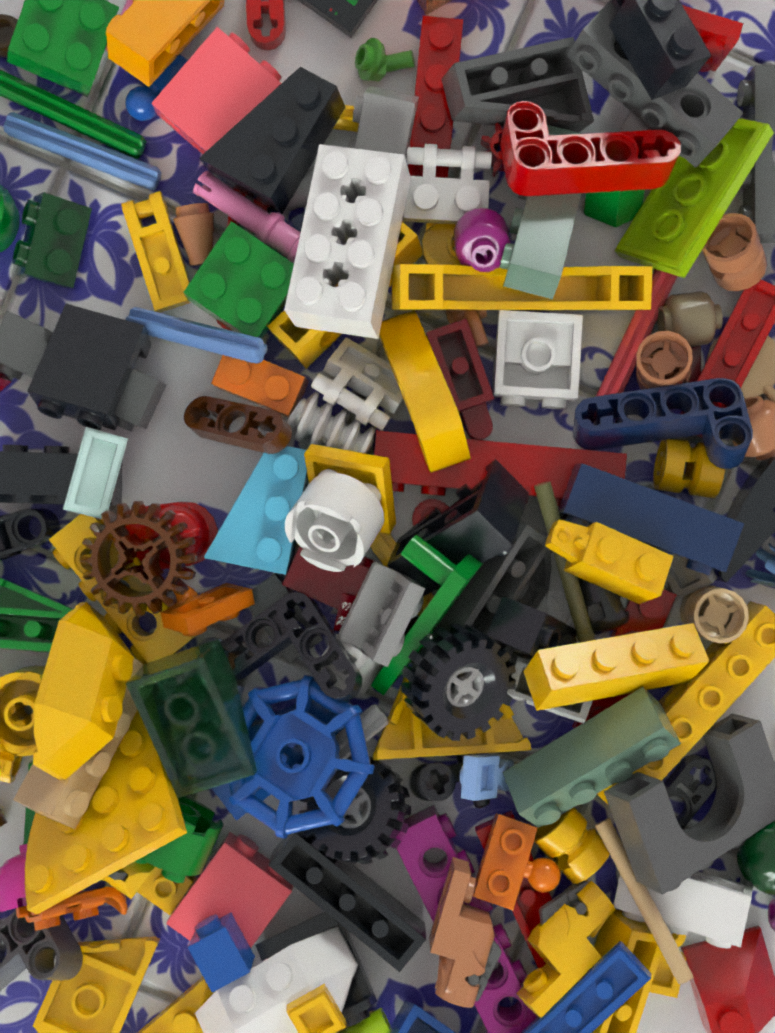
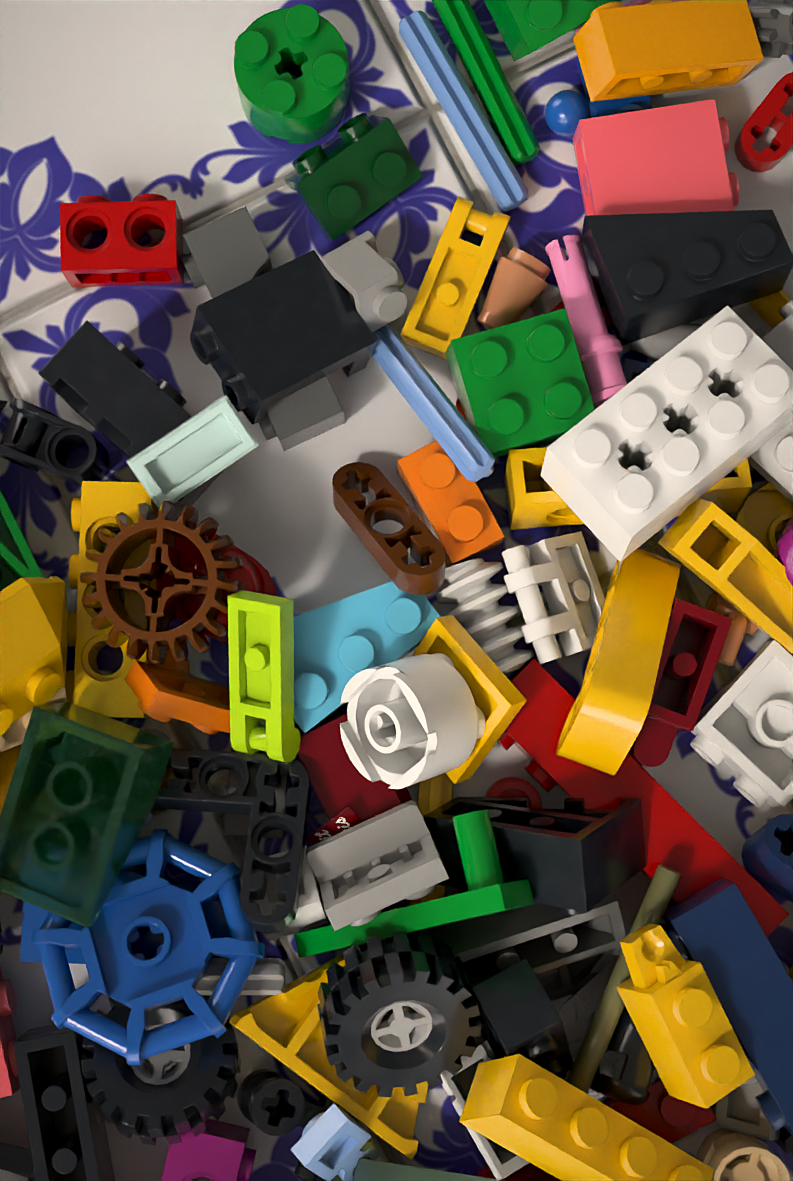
camera: 40 degrees right, 5 degrees down
(110, 295) = (368, 280): none -> light grey brick
(235, 563) = (262, 675): none -> lime plate

